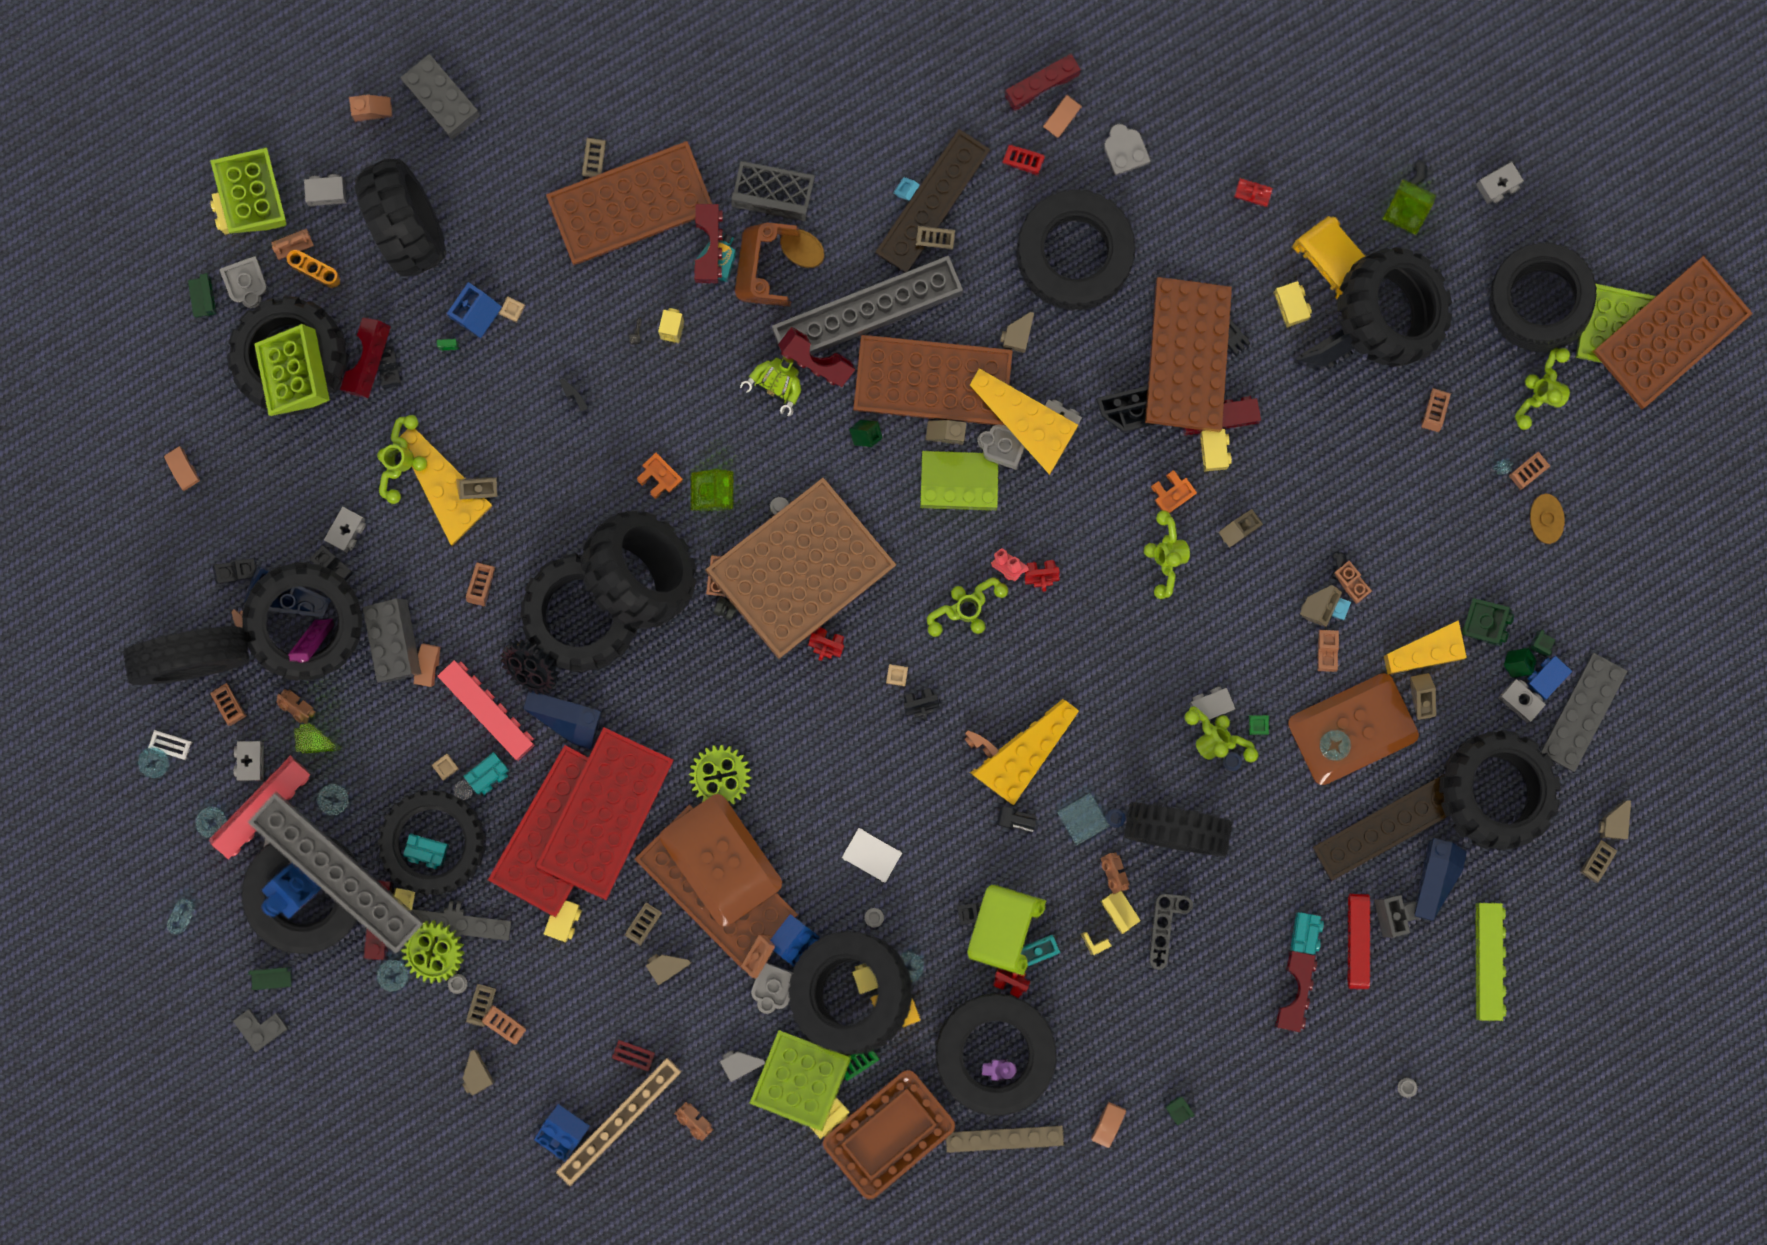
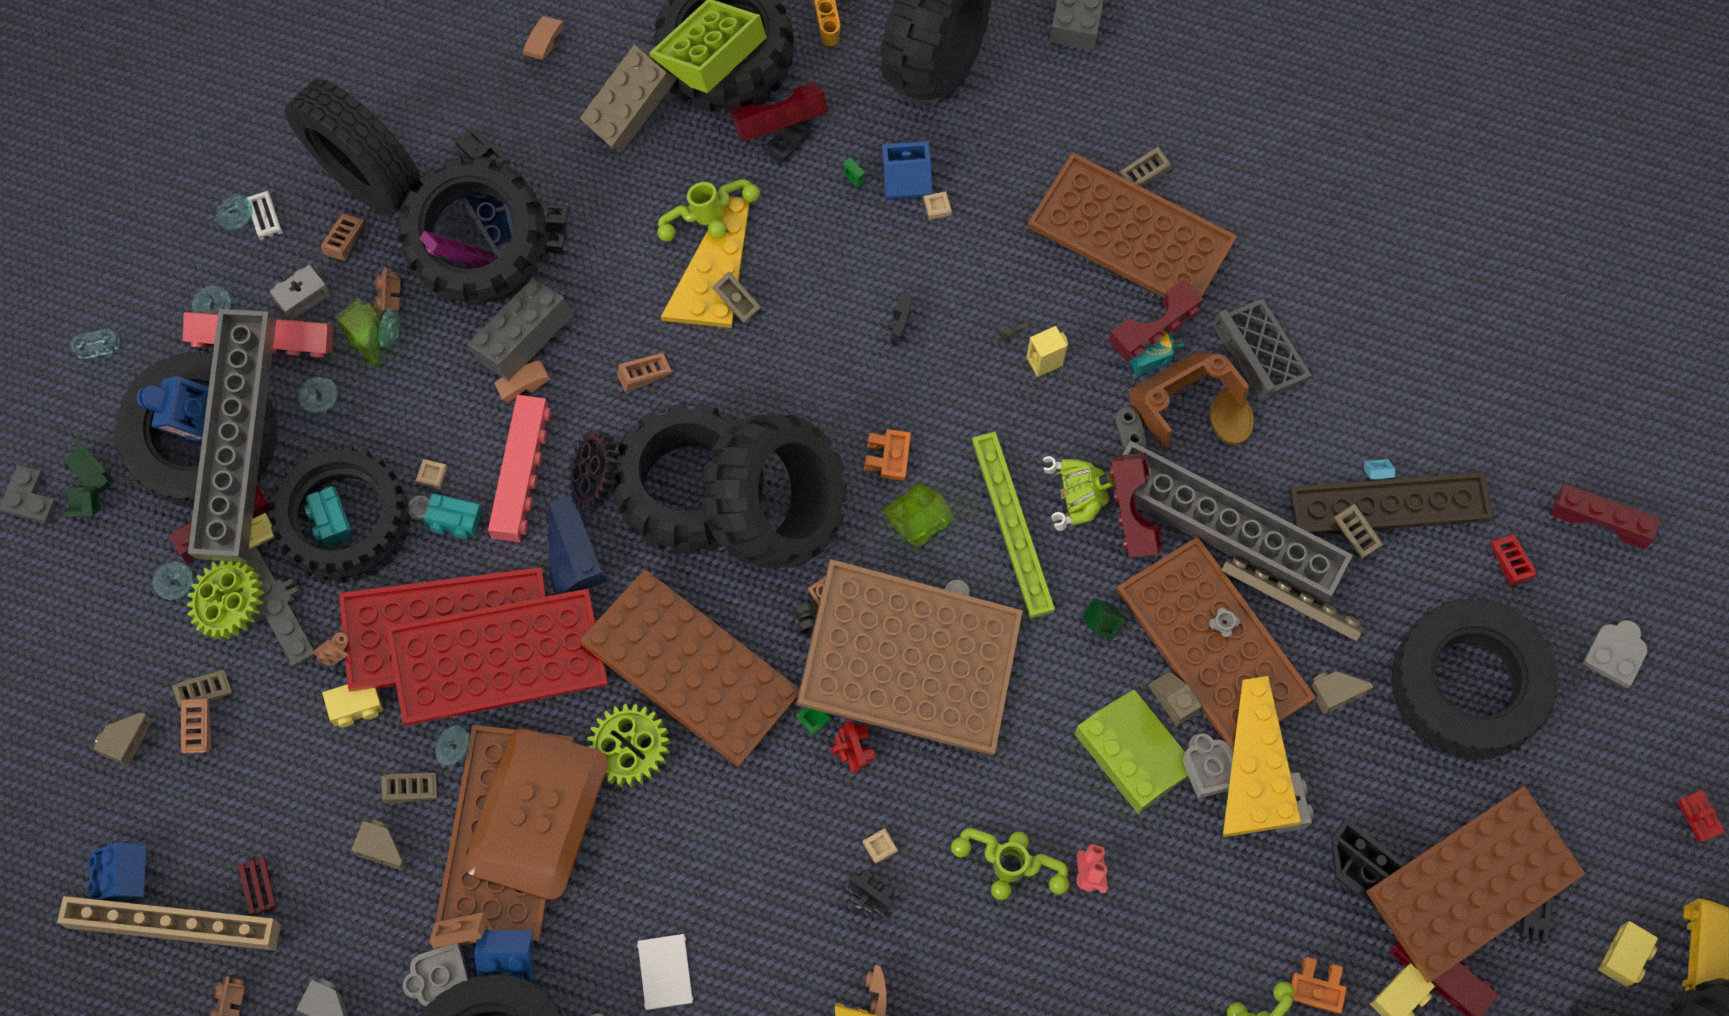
camera: 55 degrees right, 15 degrees down
(281, 450) = (628, 98): none -> dark tan brick
(293, 997) = (82, 501): none -> dark green panel
(323, 722) = (389, 328): none -> clear light blue gear
(348, 520) = (605, 205): light grey brick -> none
(457, 984) = (209, 650): light grey plate -> none
(520, 909) = (332, 650): none -> nougat hinge
(638, 888) = (445, 753): none -> clear light blue gear
(701, 702) = (691, 667): none -> dark orange plate
(760, 316) = (1129, 429): none -> dark grey plate
(763, 438) = (1013, 525): none -> lime plate
(791, 657) = (813, 720): none -> green tile
(926, 360) = (1229, 617): none -> light grey plate
(938, 313) = (1302, 602): none -> dark tan plate
(1042, 577) = (1110, 916): red hips -> none
(1062, 116) = (1591, 562): nougat slope -> none

